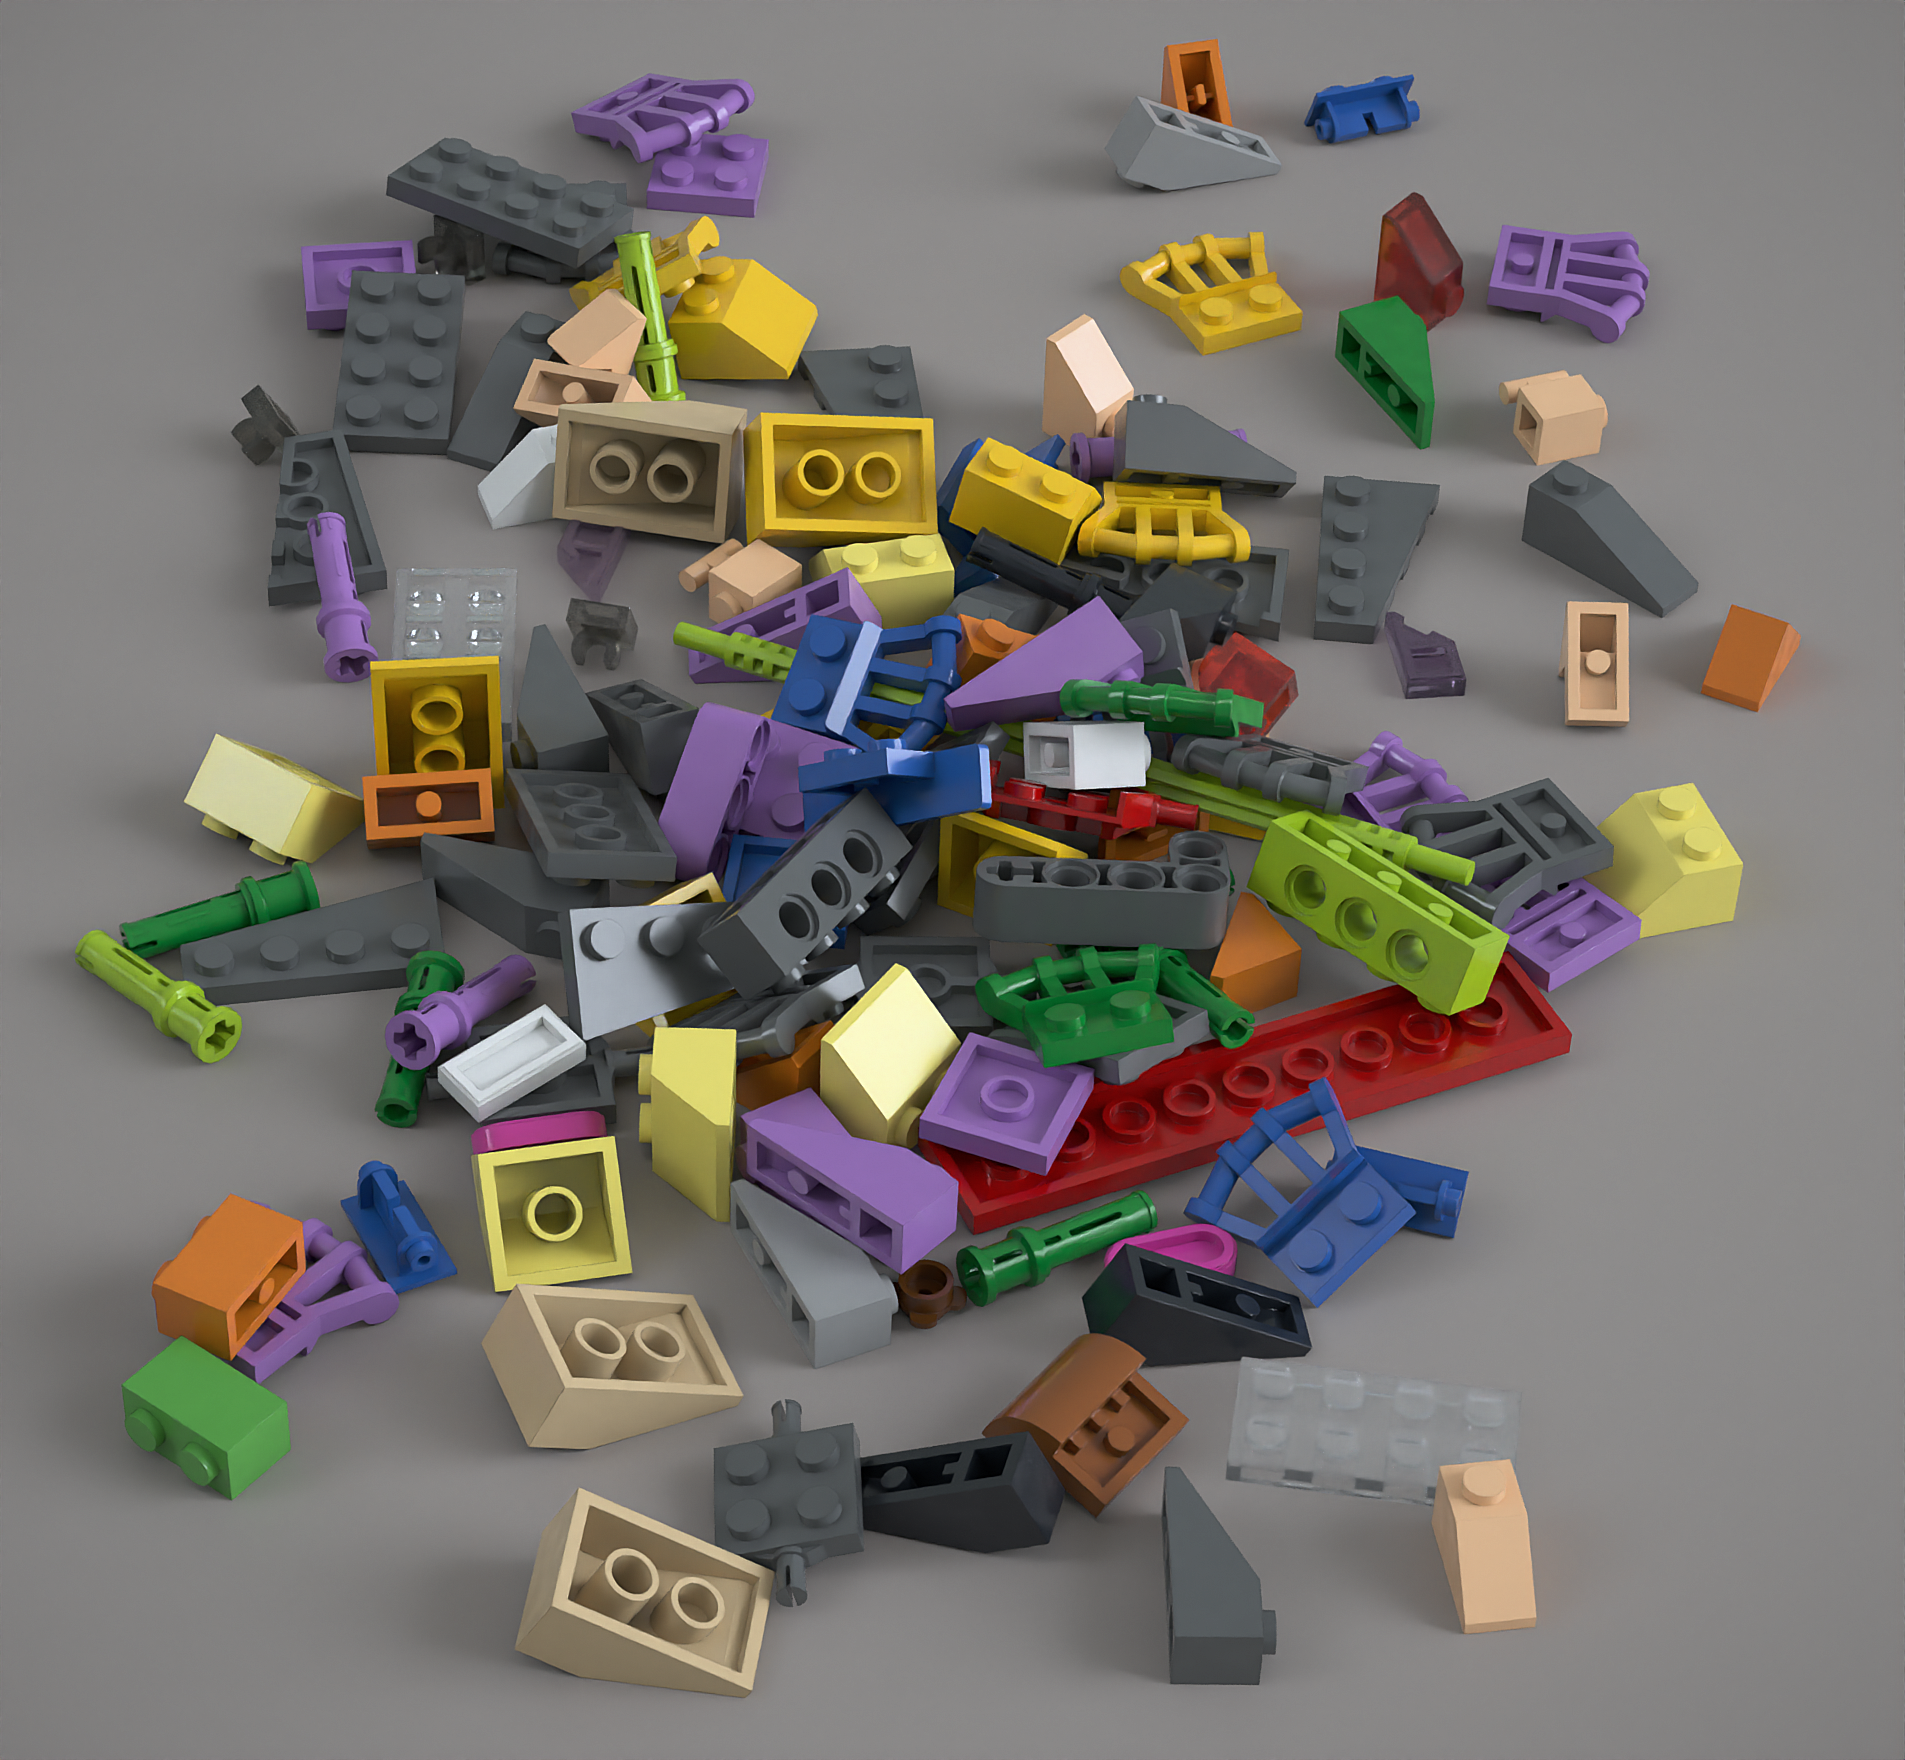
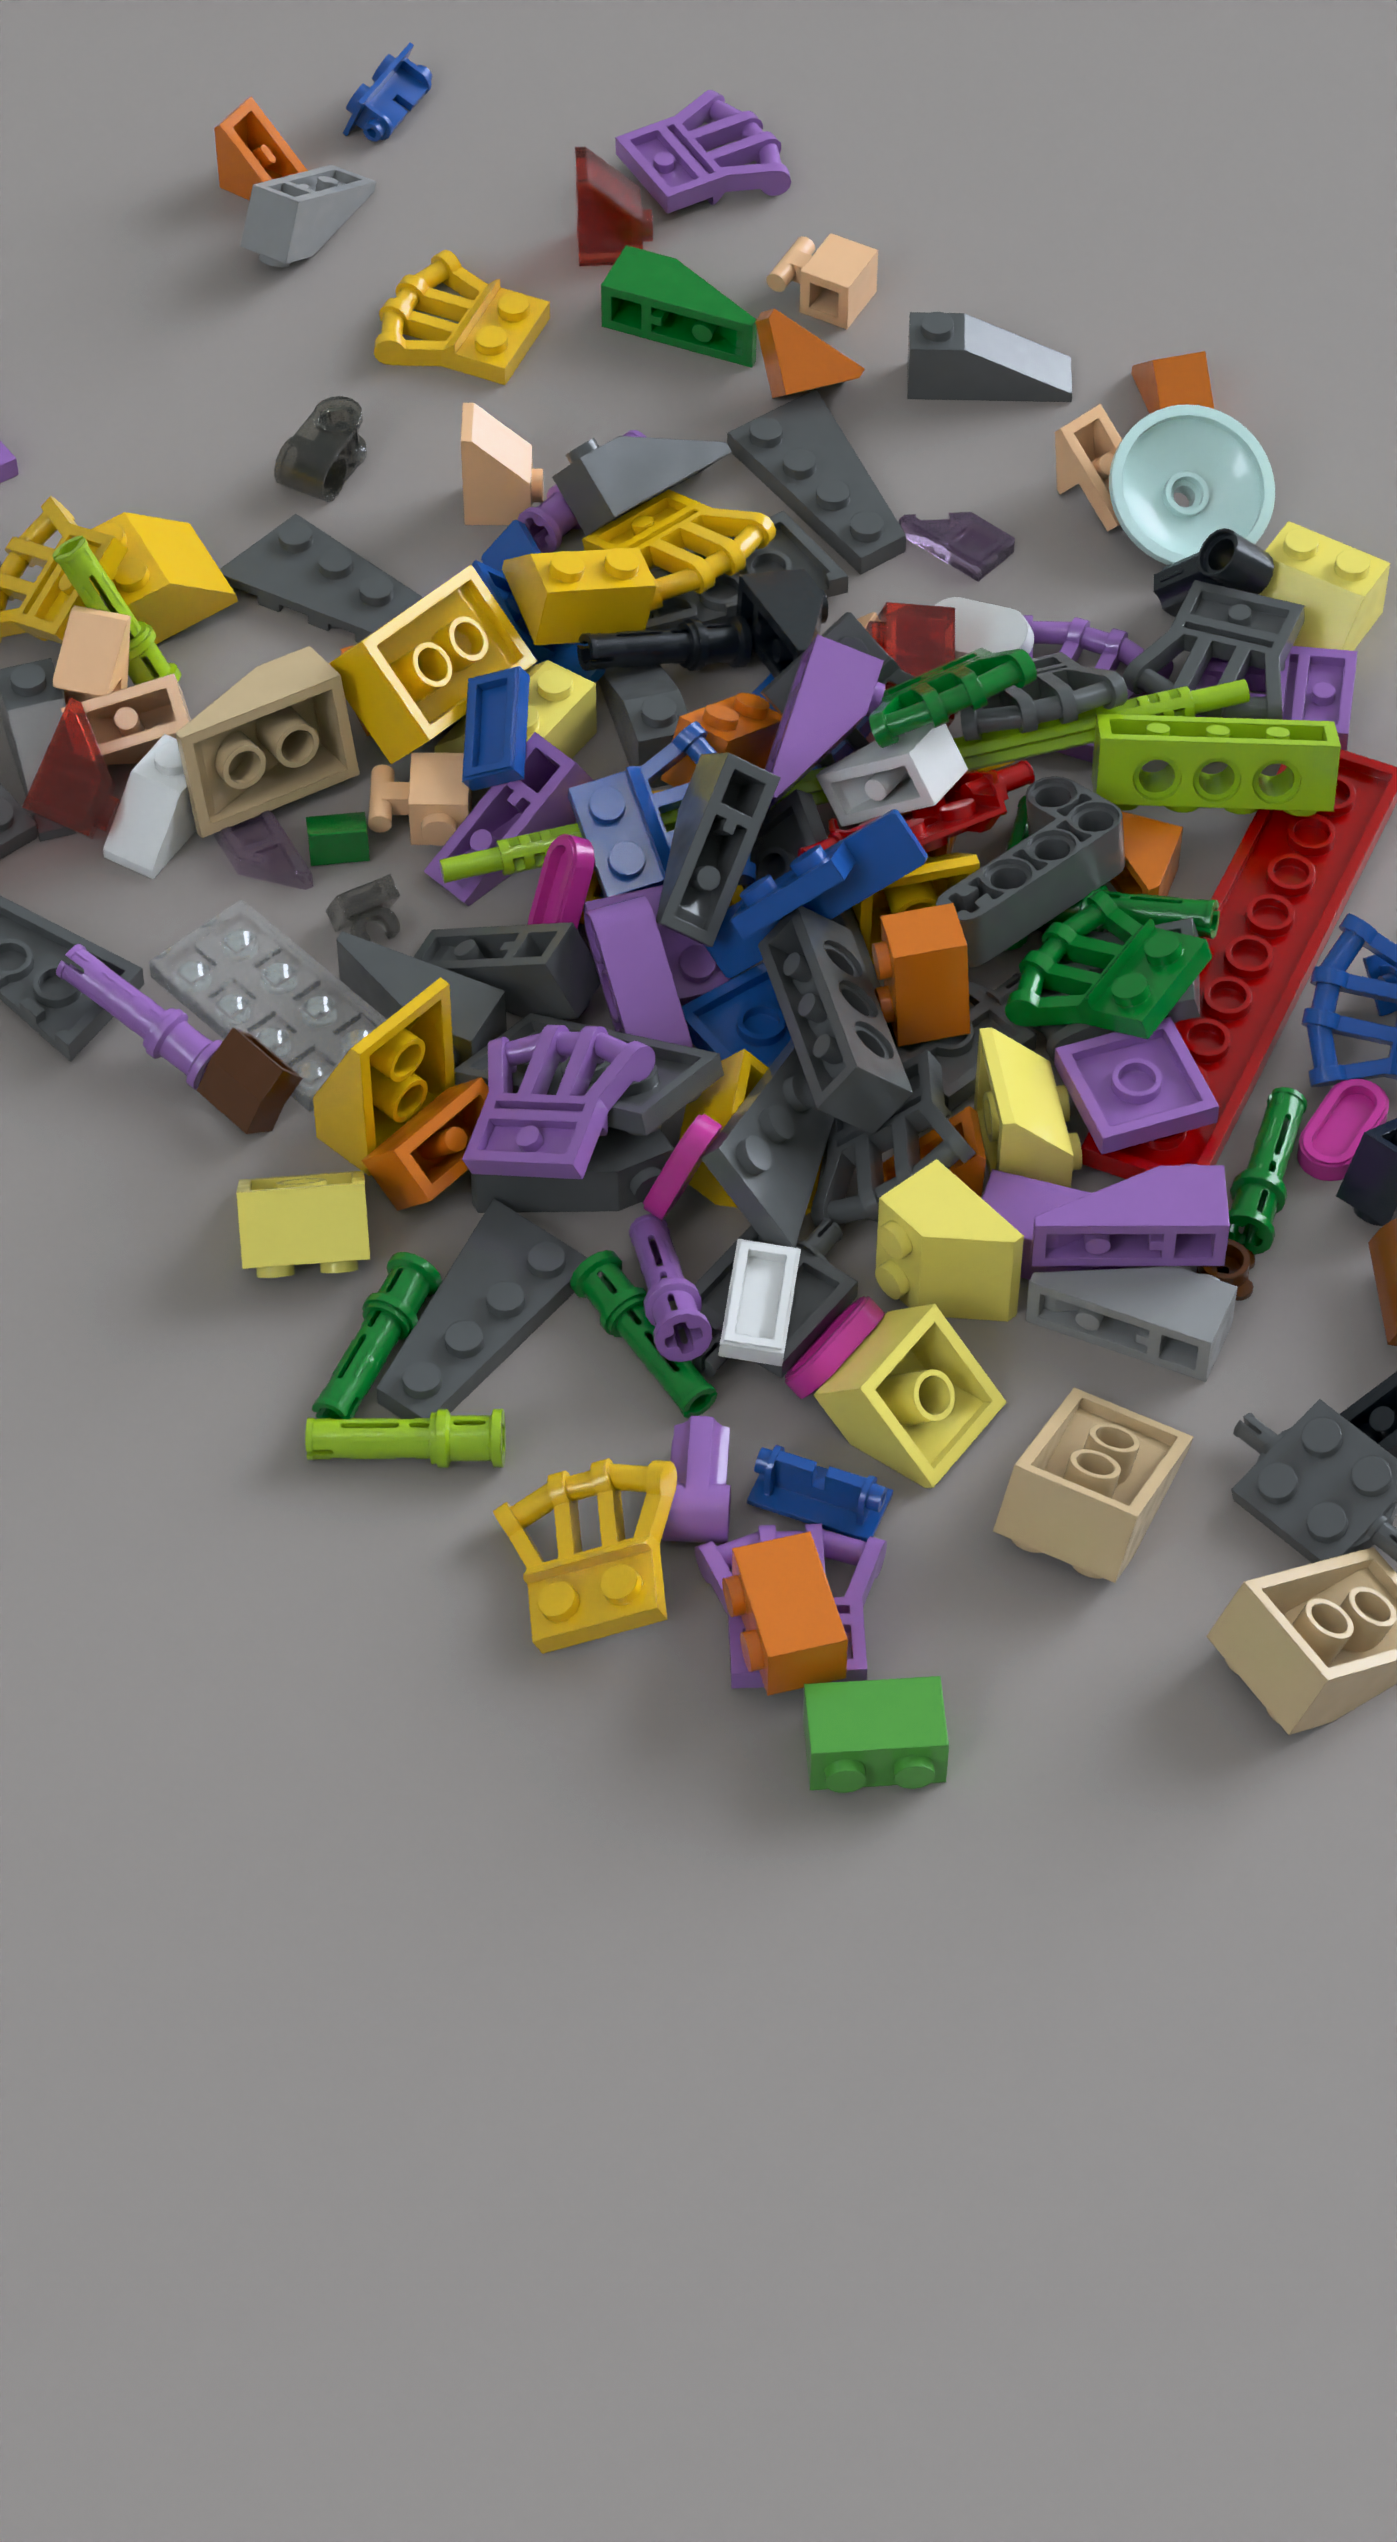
camera: 40 degrees left, 10 degrees up
(167, 1159) = (604, 1587): none -> yellow plate
(300, 1174) = (702, 1495): none -> medium lavender piece
(347, 688) = (248, 1082): none -> reddish brown piece
(491, 407) = (74, 778): none -> clear red slope
(511, 810) = (551, 1133): none -> medium lavender plate
(540, 936) = (681, 1166): none -> dark pink tile
(648, 576) = (337, 838): none -> green slope
(758, 681) = (563, 881): none -> dark pink tile
(824, 549) = (496, 728): none -> blue tile
(855, 707) = (713, 843): none -> dark grey slope
(917, 906) = (923, 974): none -> orange brick
(983, 317) = (323, 450): none -> clear smoke piece
(1337, 723) = (988, 627): none -> white tile
(1439, 451) = (799, 359): none -> orange slope
(1591, 783) = (1223, 561): none -> black piece
(1643, 683) = (1205, 459): none -> light aqua dish

